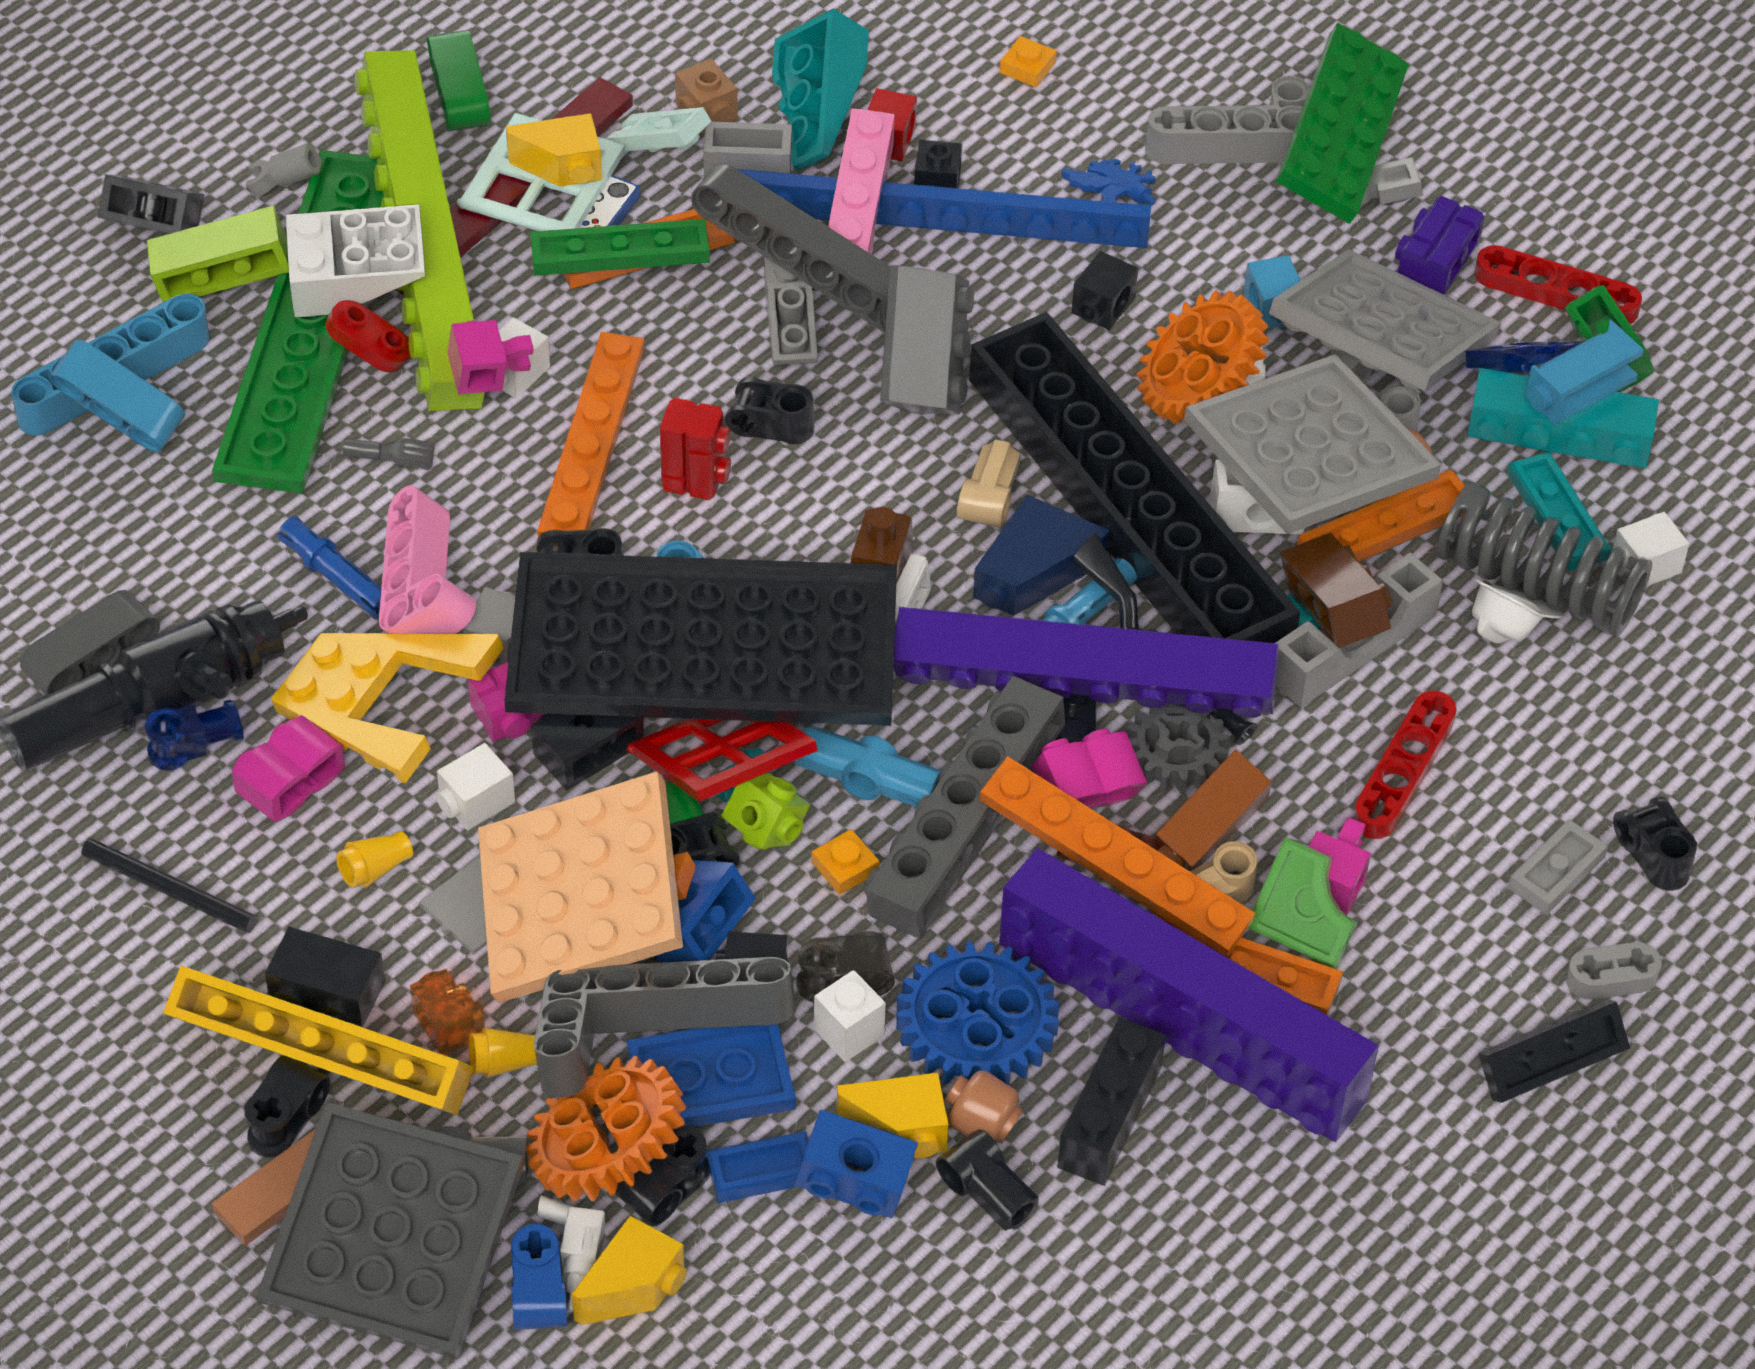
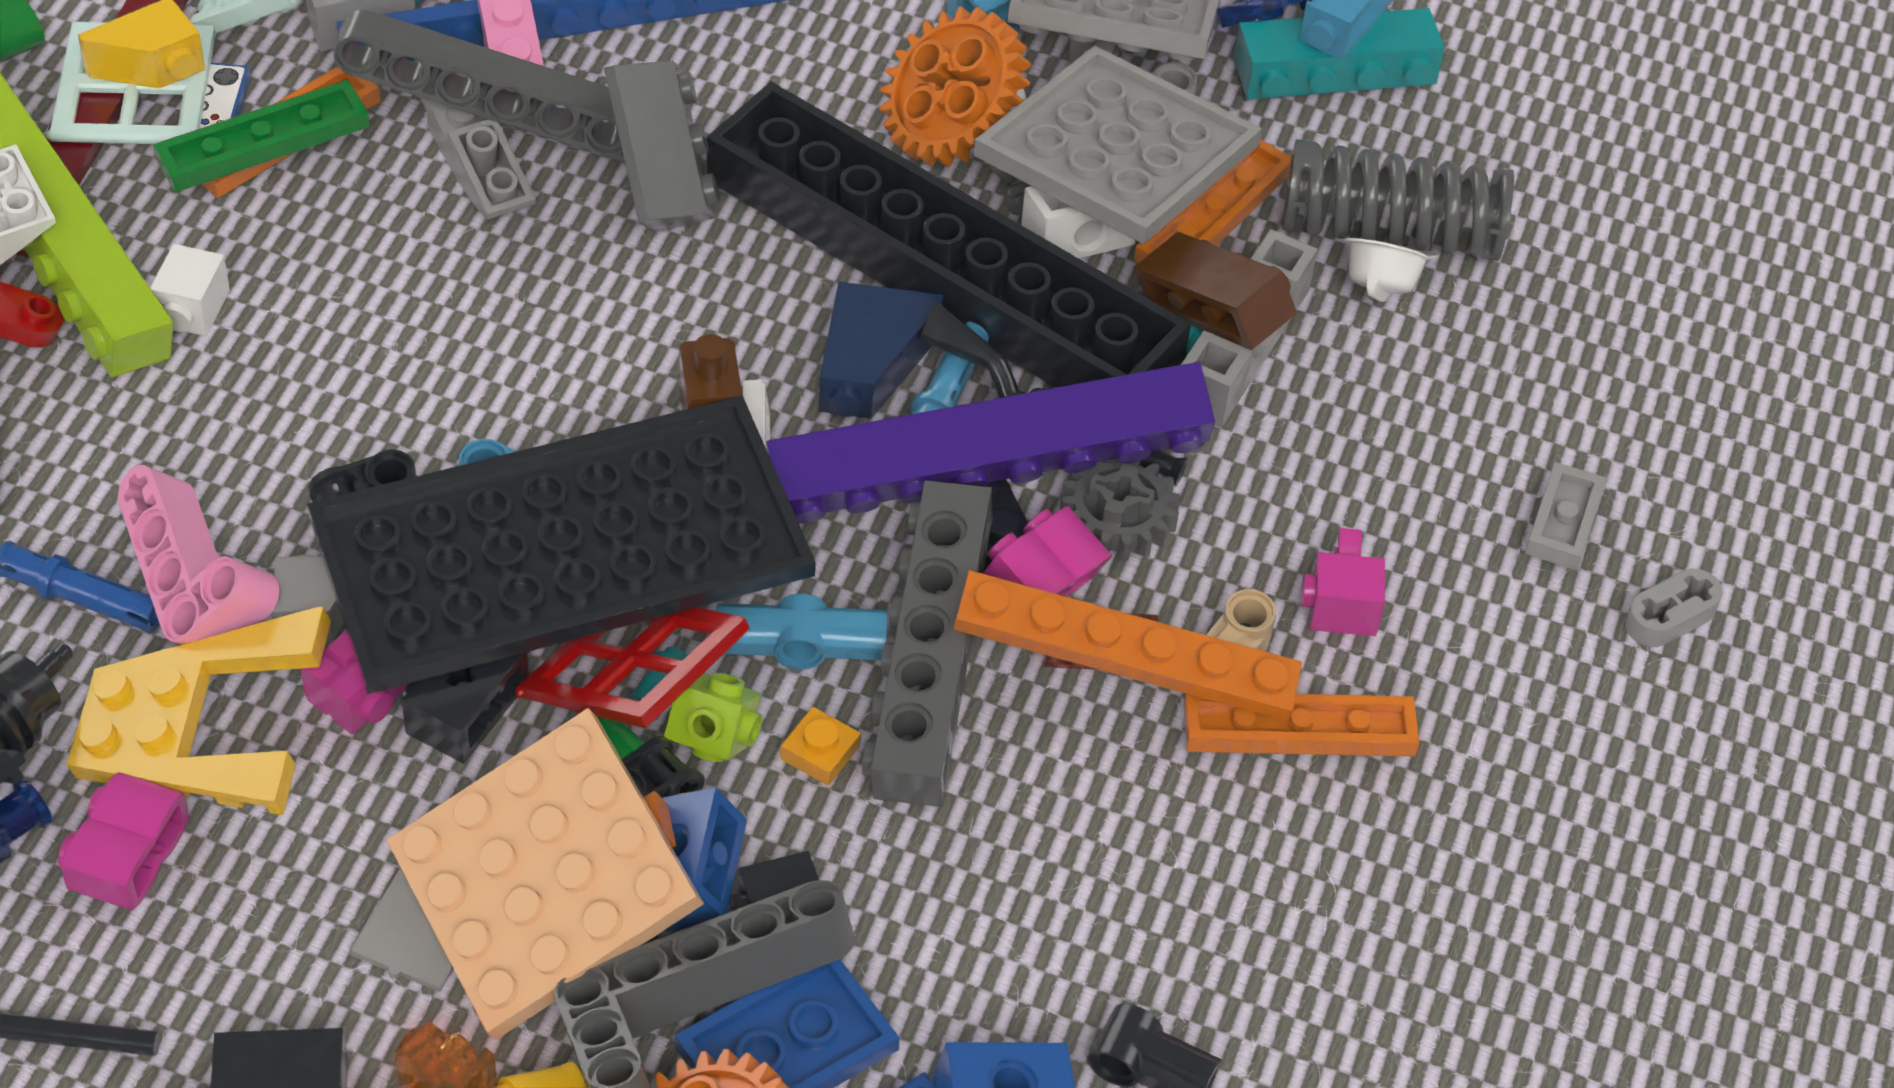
camera: 25 degrees left, 0 degrees up
(371, 858) = (271, 918): yellow cone -> none
(403, 452) = (100, 432): dark grey piece -> none
(475, 787) = (361, 792): white brick -> none
(481, 357) = (161, 297): dark pink brick -> none
(593, 433) = (315, 352): orange plate -> none
(694, 449) = (447, 334): red brick -> none
(774, 409) = (514, 266): black piece -> none
(840, 955) = (887, 863): clear smoke piece -> none
(849, 1016) = (914, 921): white brick -> none
(901, 1106) = (1023, 1007): yellow slope -> none
(977, 1014) = (1052, 873): blue gear -> none
(984, 1105) = (1111, 974): nougat head -> none
(988, 492) = (786, 291): tan piece -> none
(1104, 290) = (808, 47): black brick -> none
(1111, 1101) = (1246, 923): black brick -> none
(1190, 993) = (1273, 775): dark purple brick -> none
(1214, 812) = (1203, 562): dark orange slope -> none
(1299, 905) = (1336, 638): bright green tile -> none
(1410, 766) = (1355, 454): red beam -> none
(1550, 494) = (1343, 123): teal tile -> none
(1554, 1050) = (1664, 712): black plate -> none
(1656, 540) = (1493, 149): white brick -> none
(1658, 843) = (1653, 459): black piece -> none

